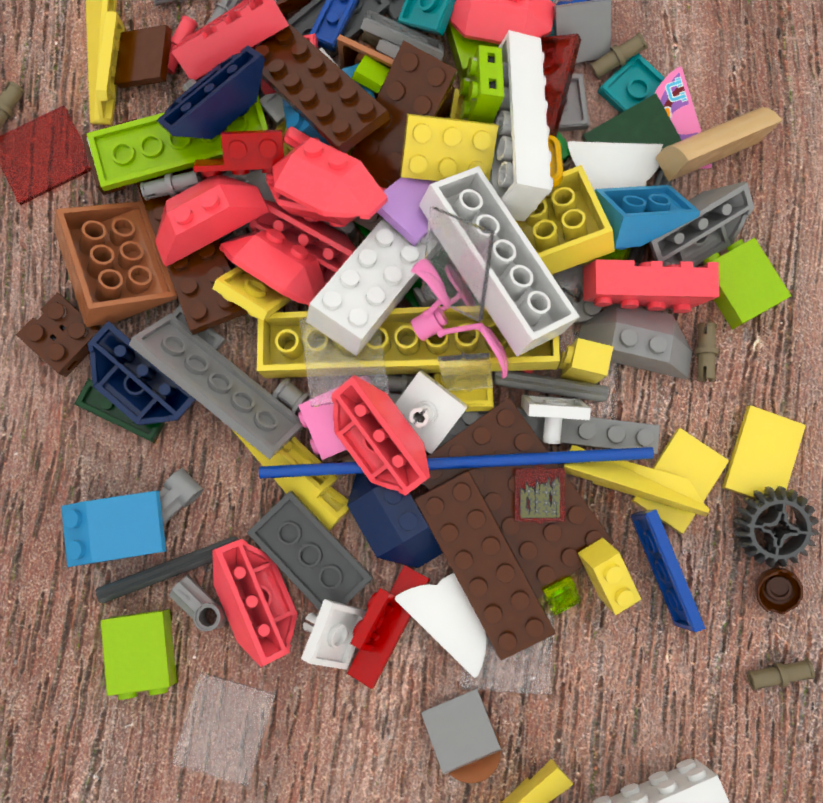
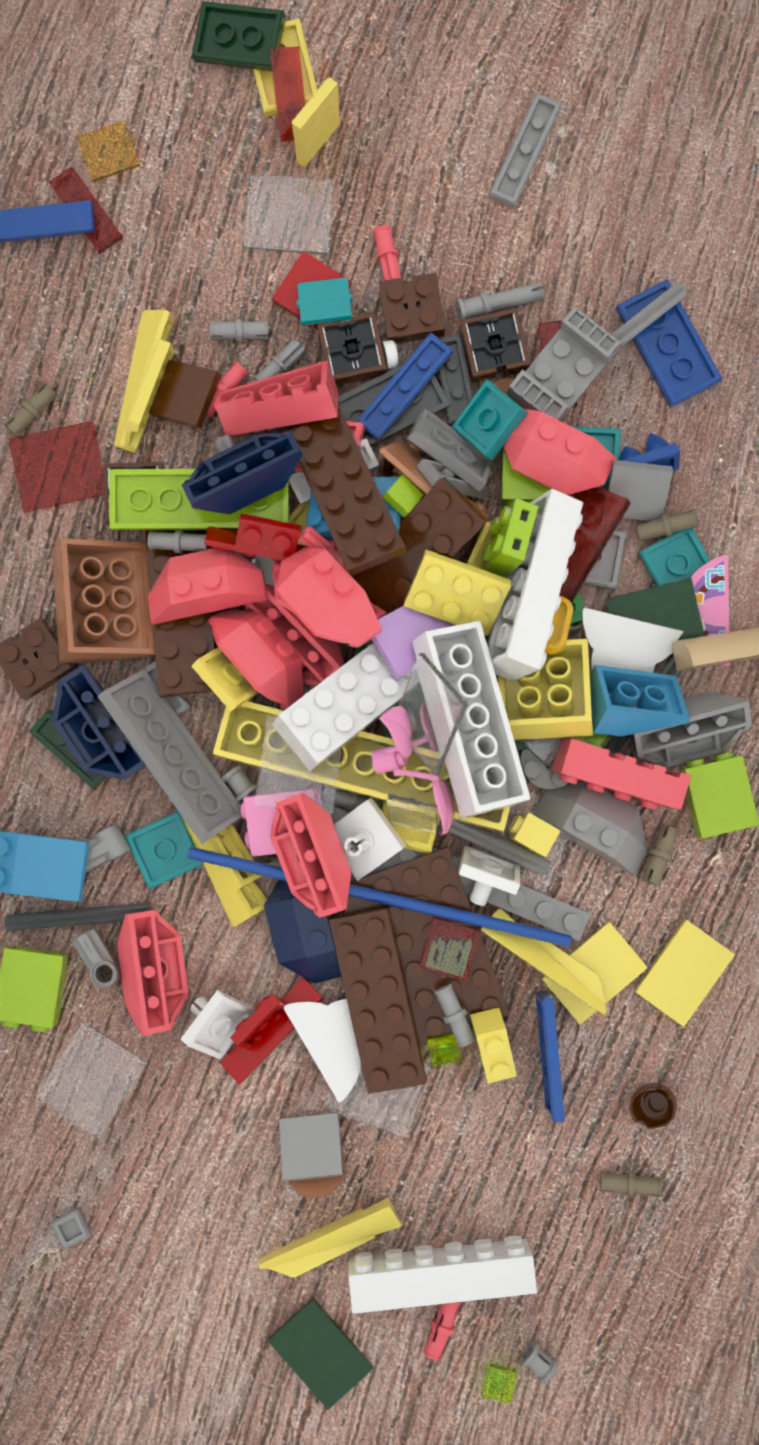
camera: 20 degrees right, 5 degrees up
(235, 481) = (162, 850): none -> teal tile
(309, 553) = (215, 940): dark grey plate -> none
(564, 557) = (455, 1015): none -> light grey pin
(775, 549) = (691, 1056): dark grey gear -> none

